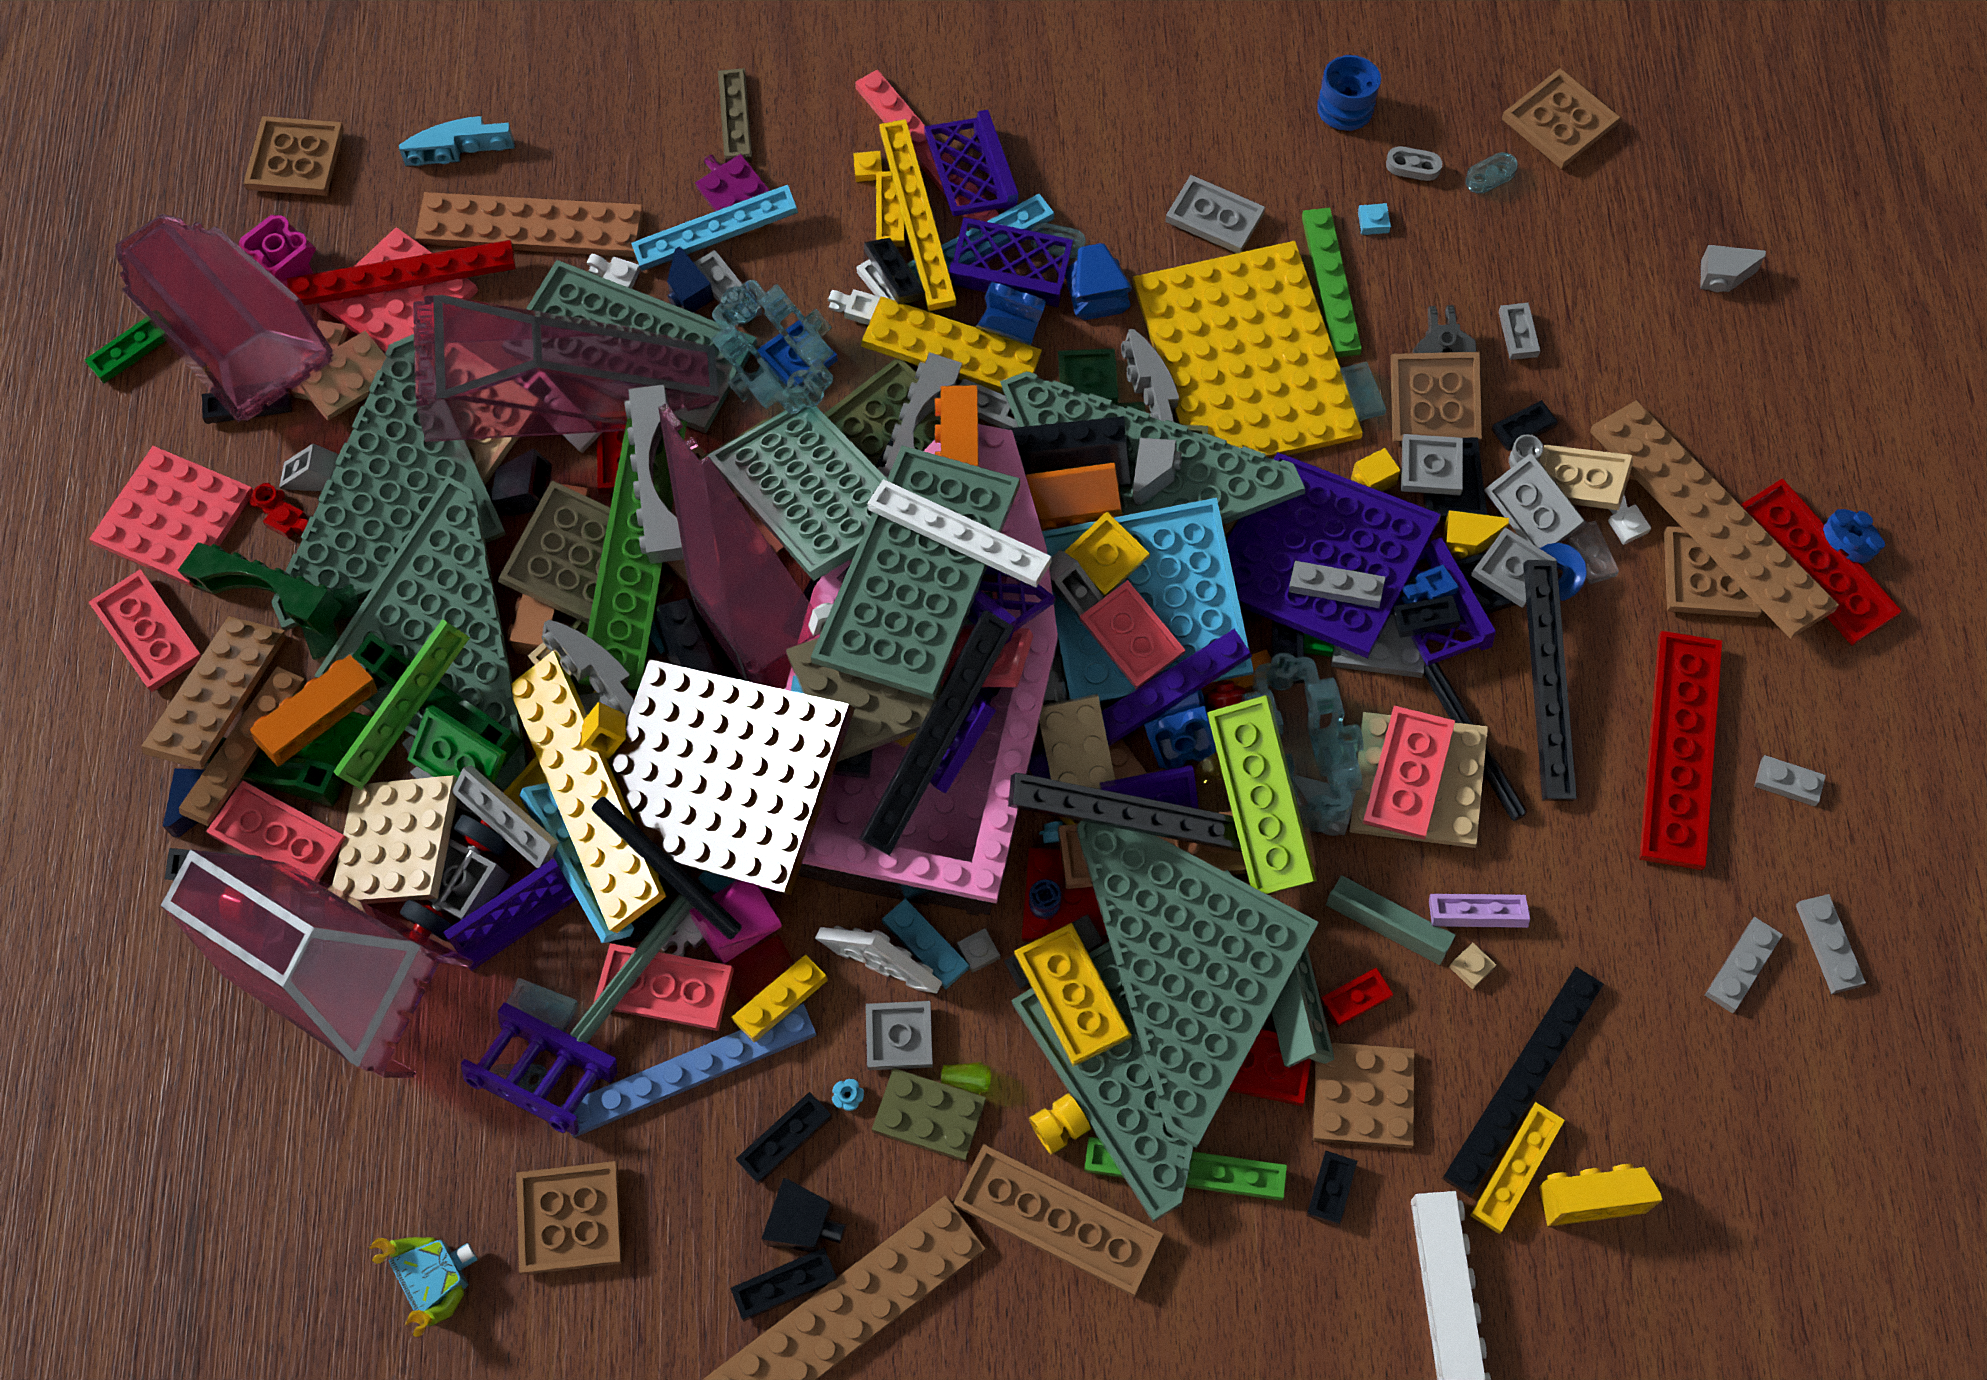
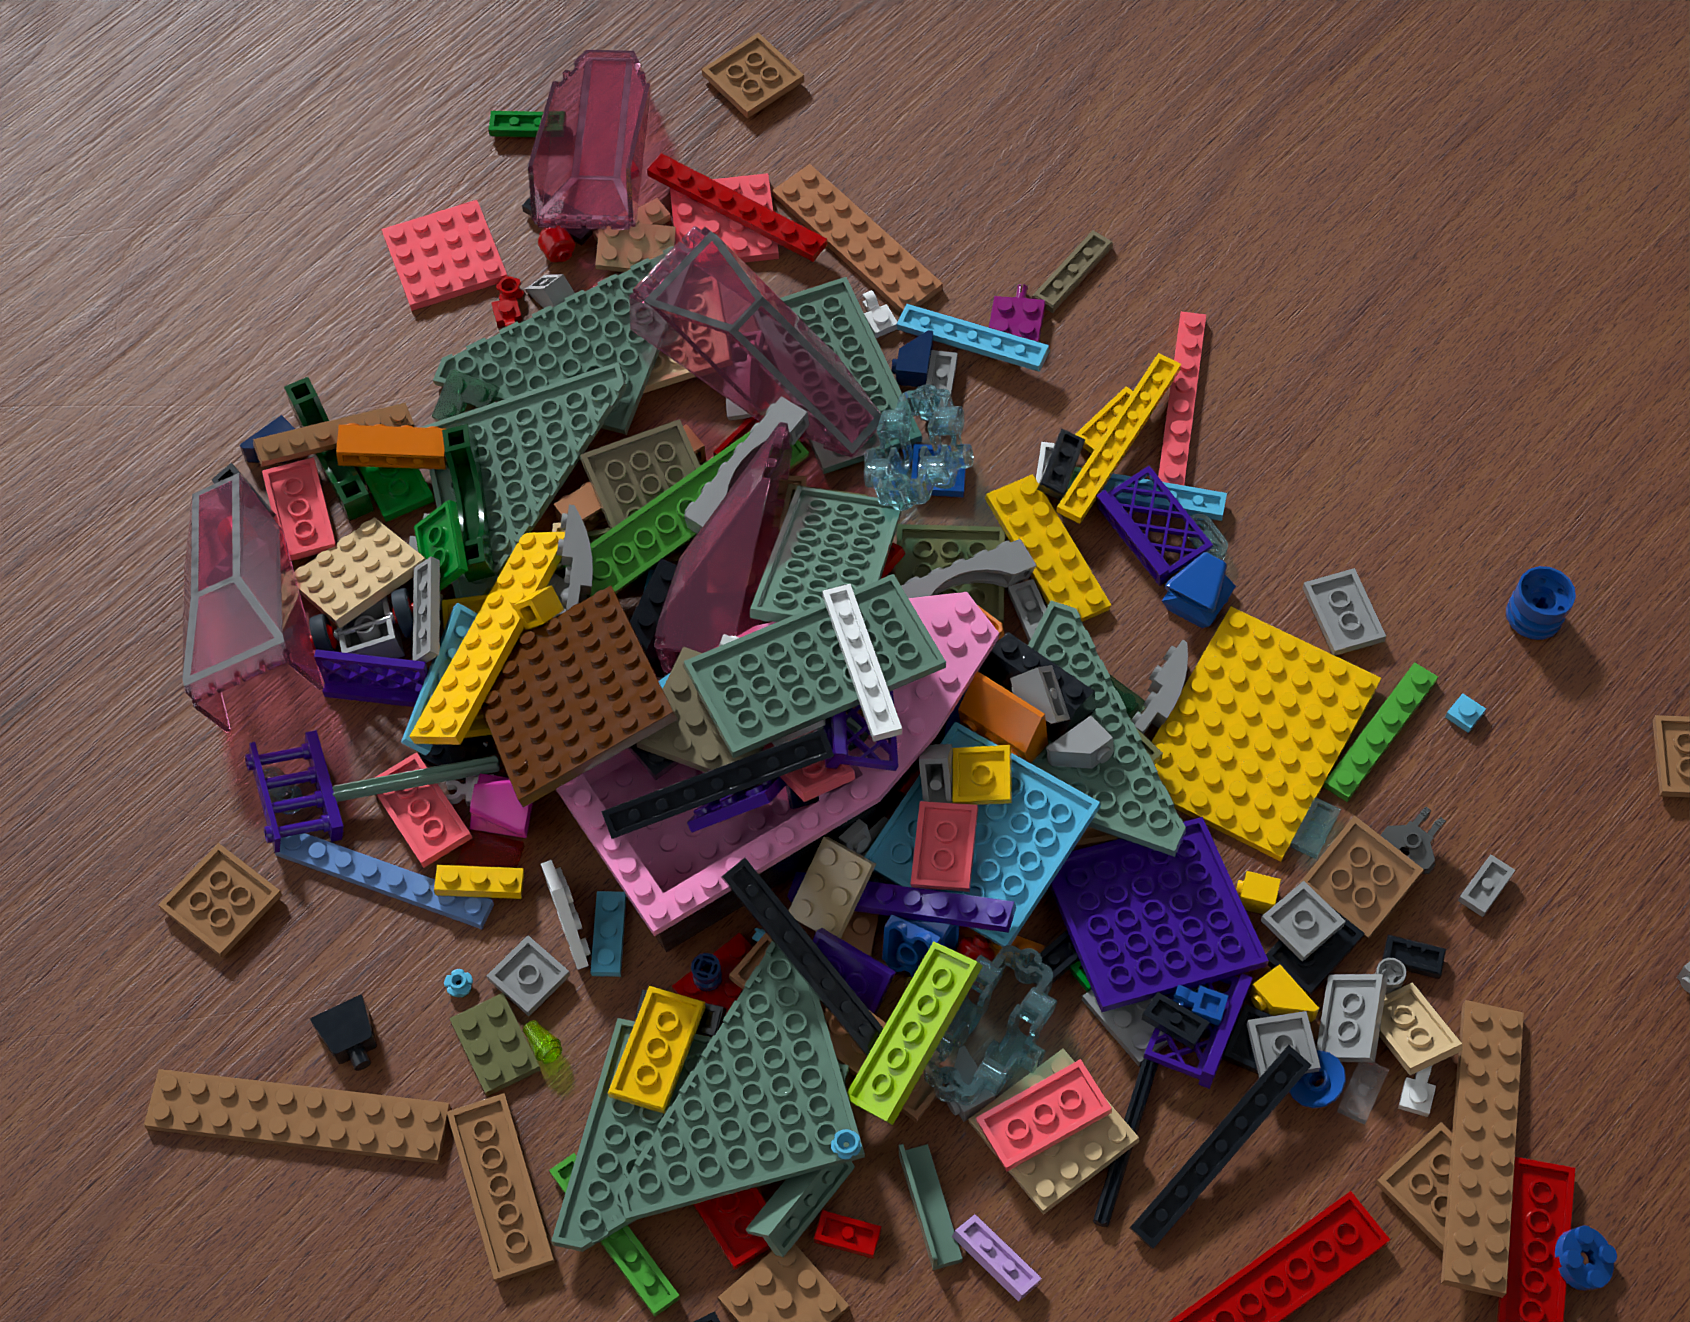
camera: 45 degrees right, 5 degrees down
(145, 630) = (355, 315): coral plate -> none
(213, 692) = (349, 386): medium nougat plate -> none
(218, 571) = (450, 369): dark green arch -> none
(271, 426) = (556, 244): none -> red head
(279, 248) = (673, 130): dark pink piece -> none
(401, 704) = (442, 486): bright green plate -> none
(427, 1275) = (108, 857): torso -> none
(447, 140) = (858, 140): medium azure slope -> none
(521, 483) = (667, 405): black torso -> none
(543, 1004) = (339, 754): clear light blue plate -> none
(666, 868) = (480, 728): black axle -> none
(783, 1138) = (392, 972): black plate -> none
(783, 1284) = (297, 1062): black plate -> none
(856, 307) = (1012, 468): white plate -> none
(866, 165) = (1127, 376): yellow plate -> none
(958, 423) = (955, 600): orange brick -> none
(978, 950) = (637, 969): light grey plate -> none
(992, 154) = (1214, 449): dark purple fence -> none
(1011, 313) = (1110, 560): blue piece -> none
(1060, 1123) = (562, 1125): yellow wheel -> none
(1085, 449) = (1041, 691): none -> light grey slope
(1090, 372) = (1126, 650): clear green plate -> none
(1307, 921) = (842, 1137): none -> medium azure plate
(1337, 584) = (1133, 941): light grey plate -> none
(1413, 163) = (1543, 697): light grey plate -> none
(1472, 965) = (953, 1291): tan plate -> none
(1488, 172) = (1595, 752): clear light blue plate -> none

